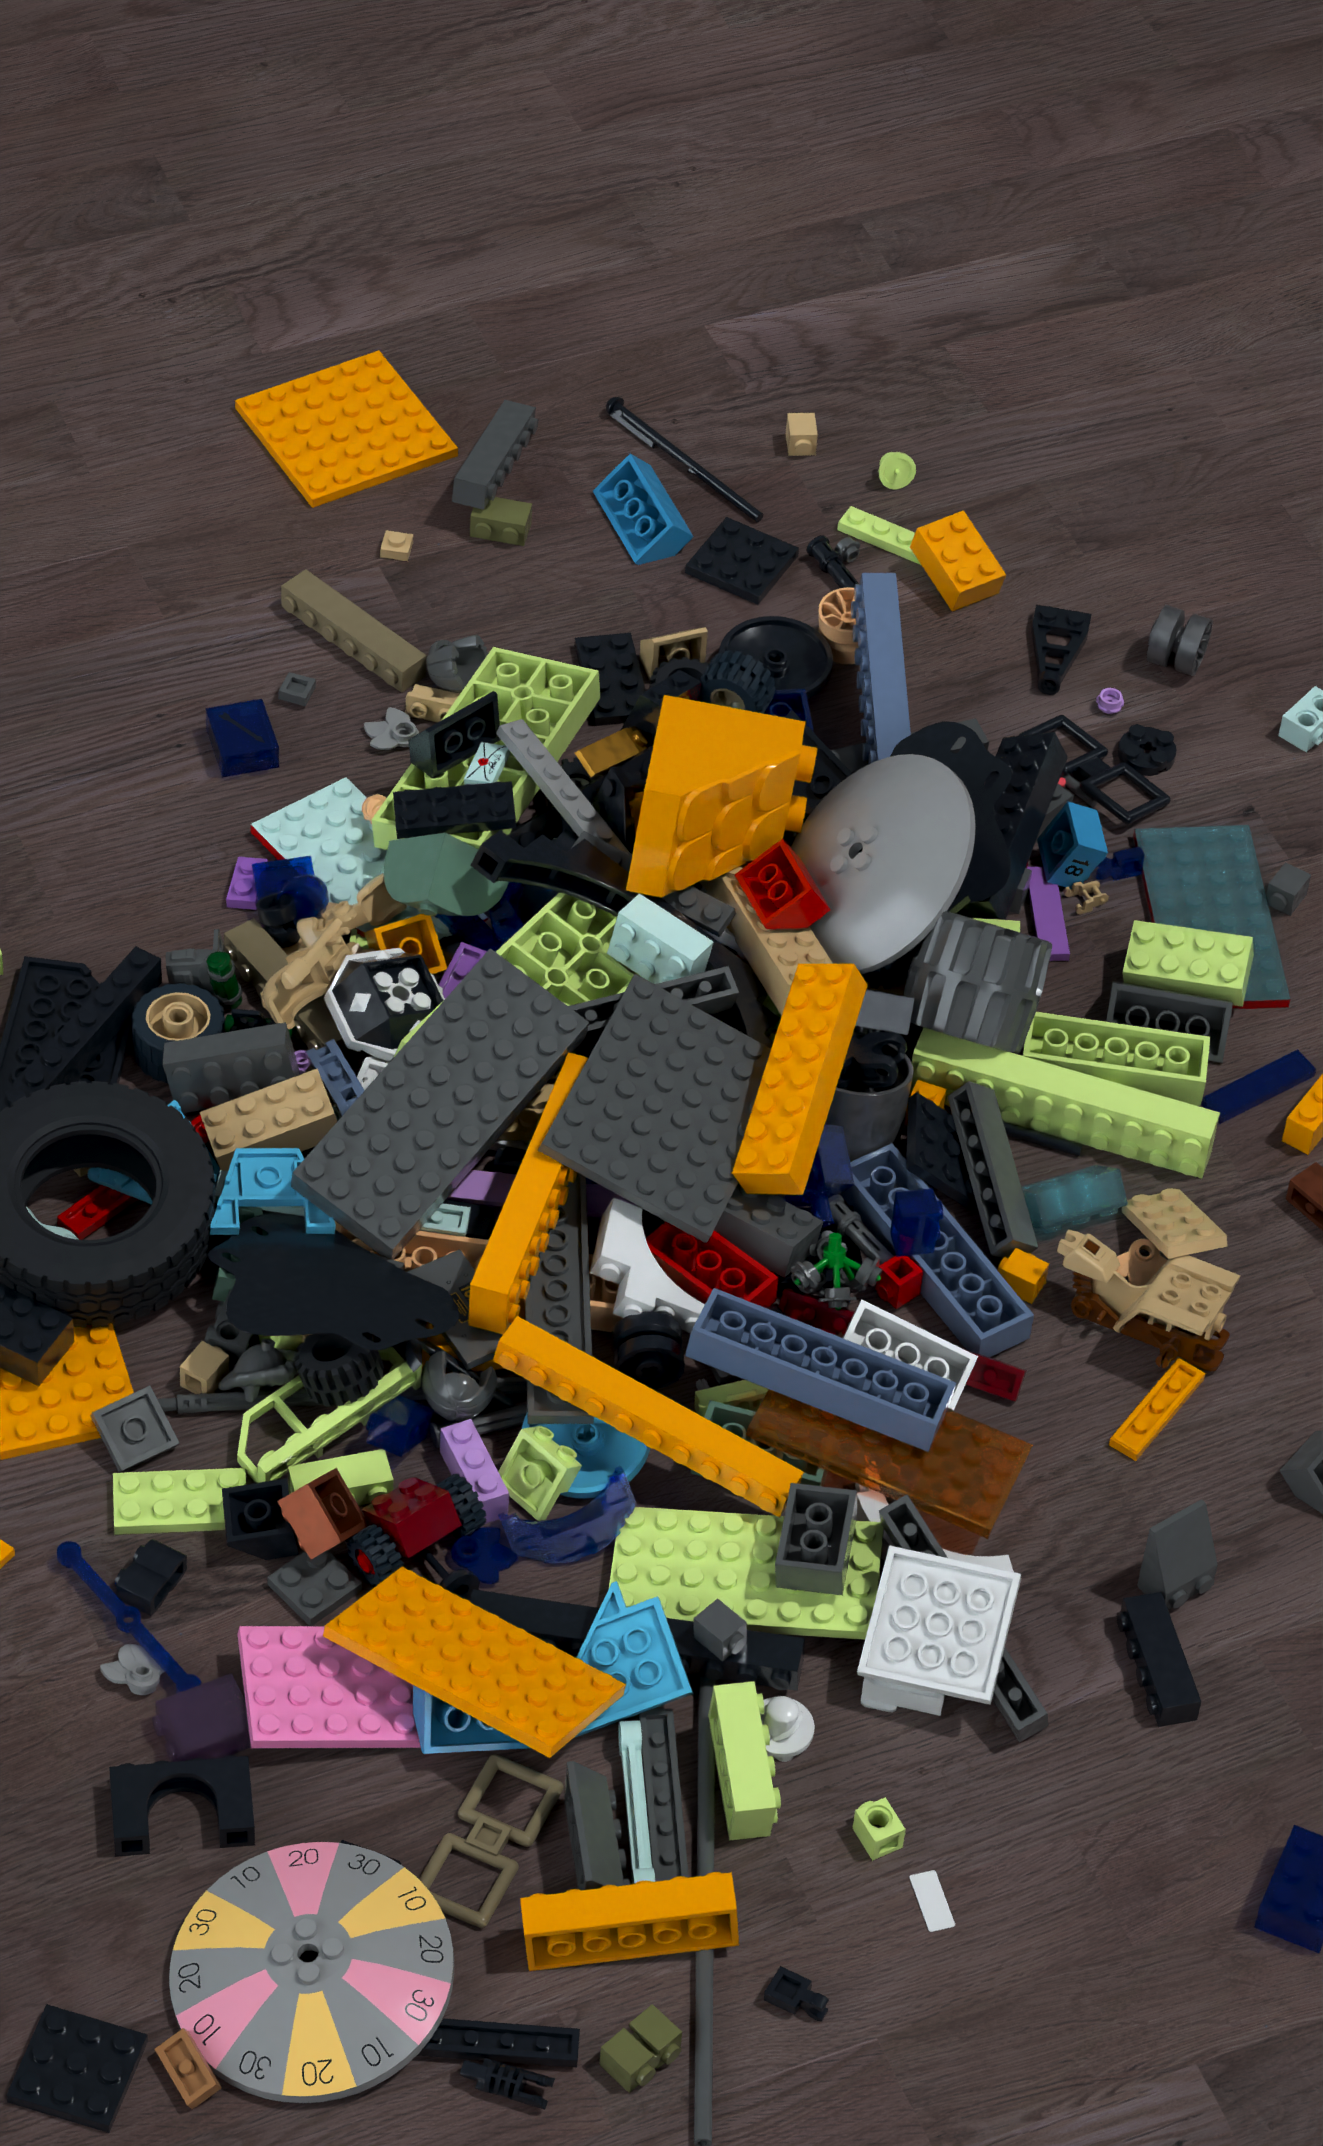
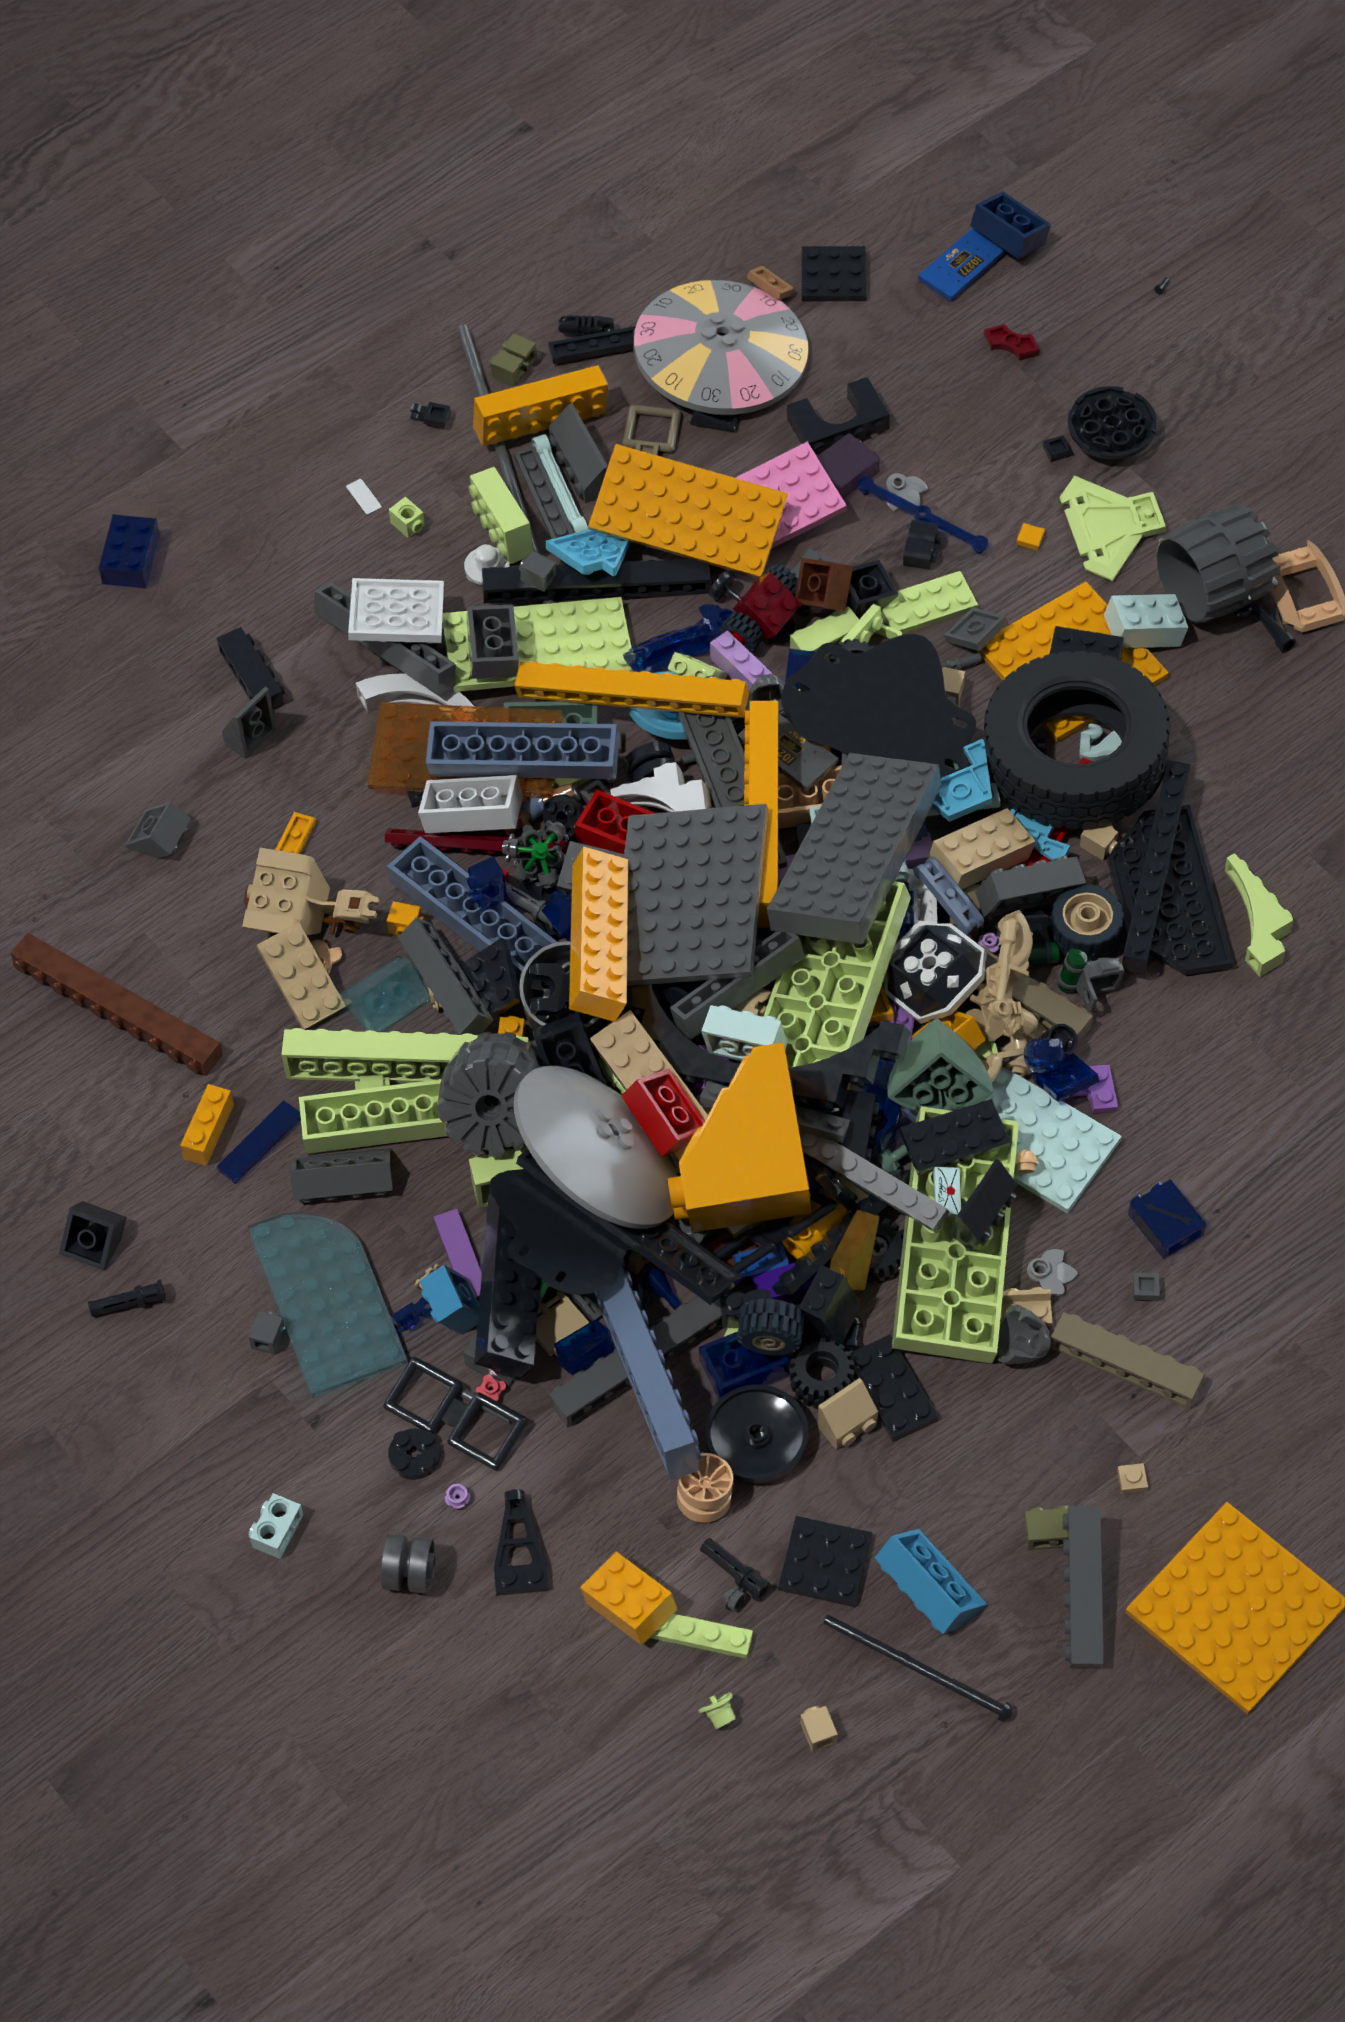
camera: 170 degrees right, 10 degrees up
(1189, 961) = (334, 1214): yellowish green brick -> none

